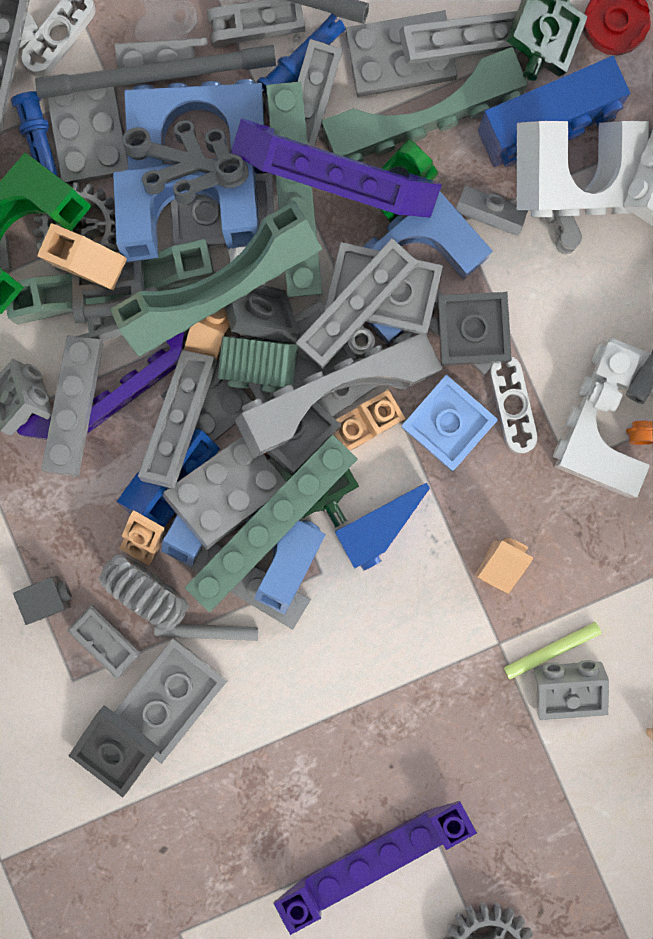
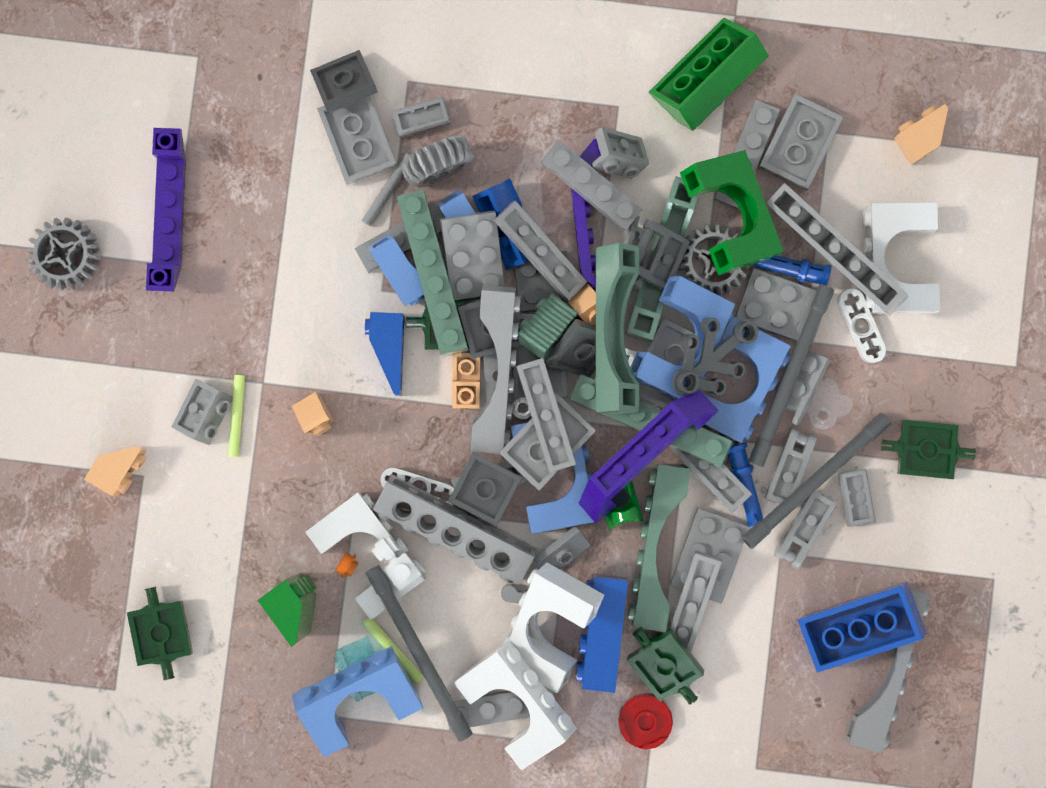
camera: 120 degrees right, 0 degrees up
(43, 599) = (473, 92): dark grey brick -> none
(81, 257) = (686, 248): light nougat slope -> none
(142, 538) = (474, 180): light nougat slope -> none
(449, 423) = (431, 436): light blue plate -> none
(527, 352) = (449, 516): none -> light grey brick

